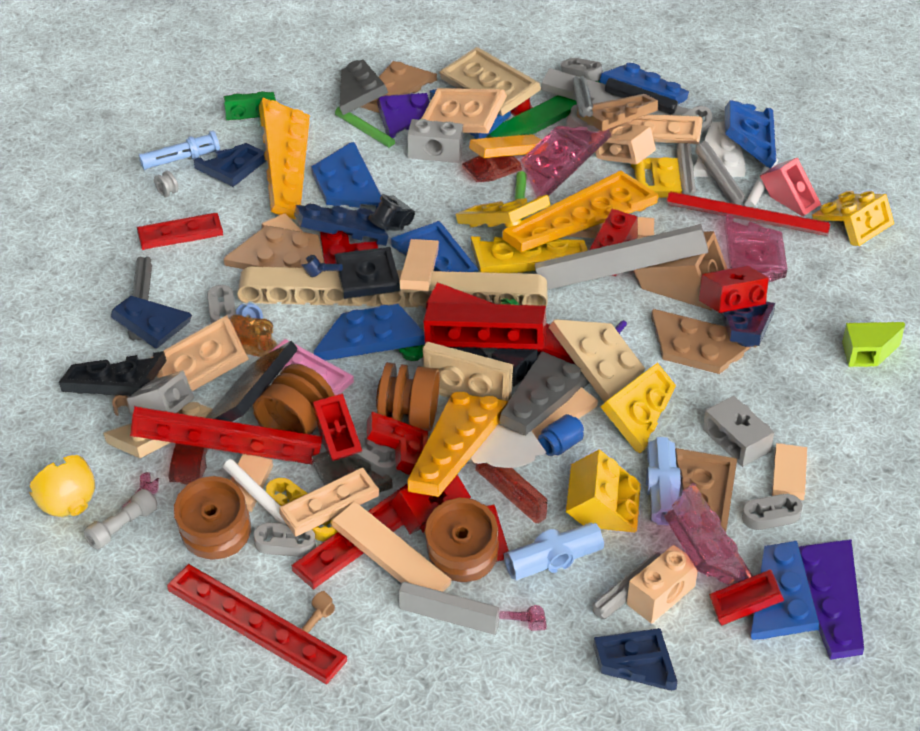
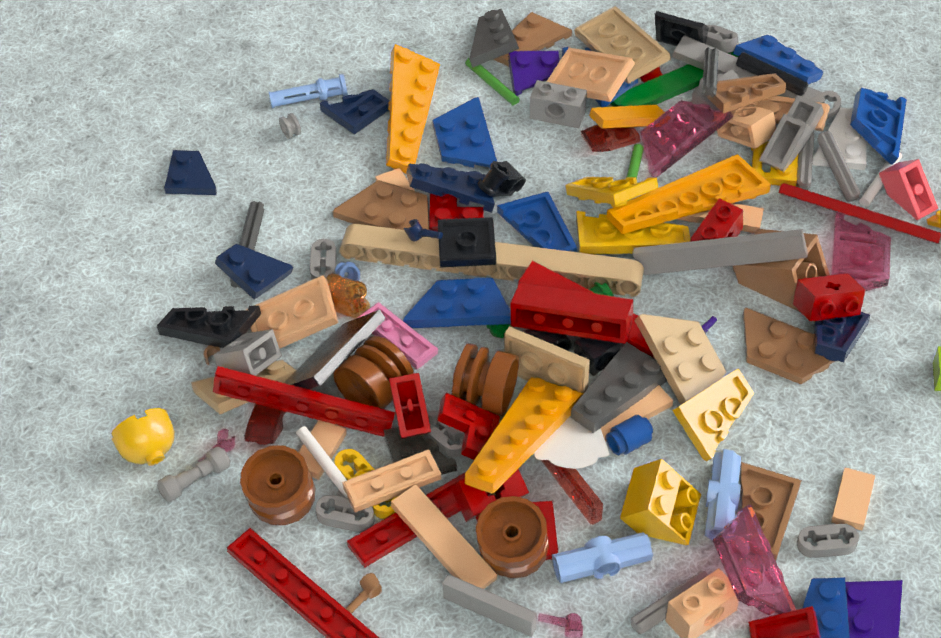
camera: 10 degrees right, 5 degrees up
(68, 239) = (188, 175): none -> dark blue wing
(179, 231) = (296, 176): red tile -> none
(245, 105) = (379, 48): green bracket -> none
(419, 265) = (518, 239): light nougat tile -> none
(537, 61) = (672, 28): none -> black slope
(671, 146) = (792, 133): none -> light grey slope
(738, 430) = (808, 450): light grey brick -> none

